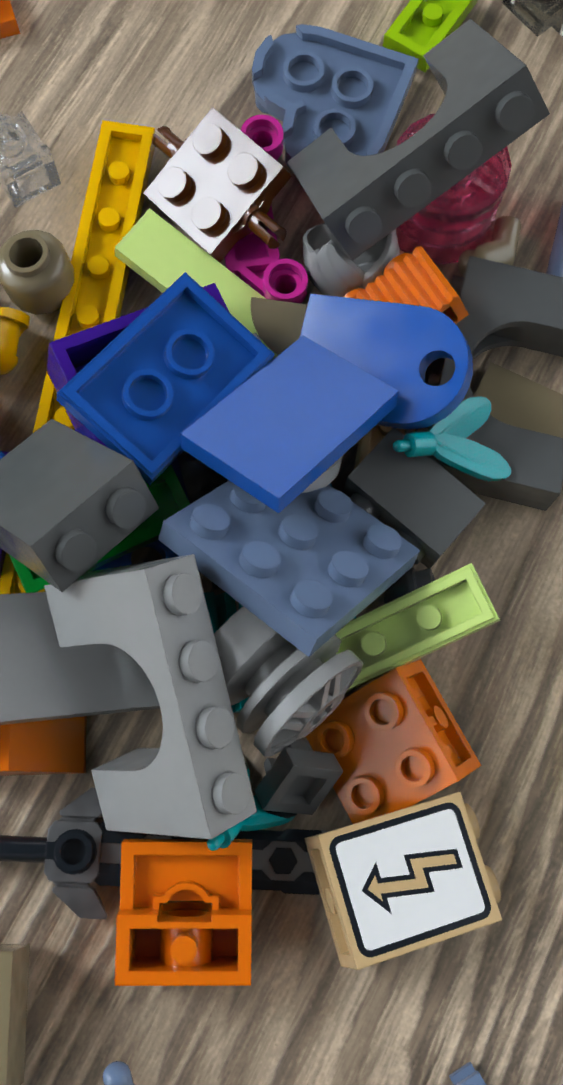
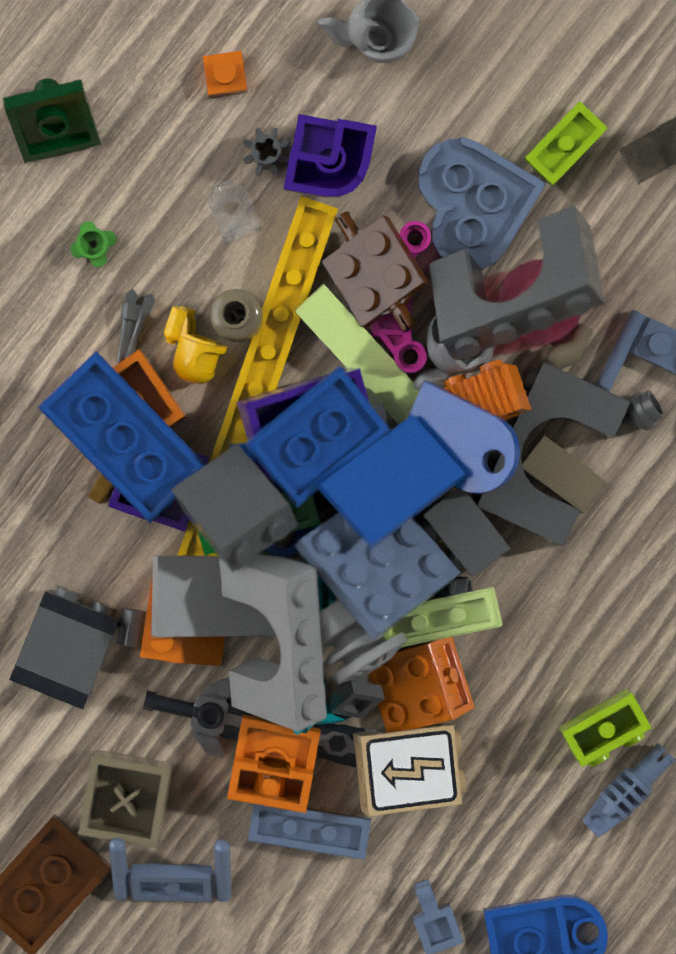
camera: 15 degrees right, 15 degrees up
(50, 80) = (262, 142): none -> dark grey gear
(132, 65) = (329, 156): none -> dark purple brick
(265, 1016) = (311, 831): none -> sand blue plate
(277, 322) = (400, 389): dark tan tile -> none
(449, 442) = (495, 503): teal piece -> none

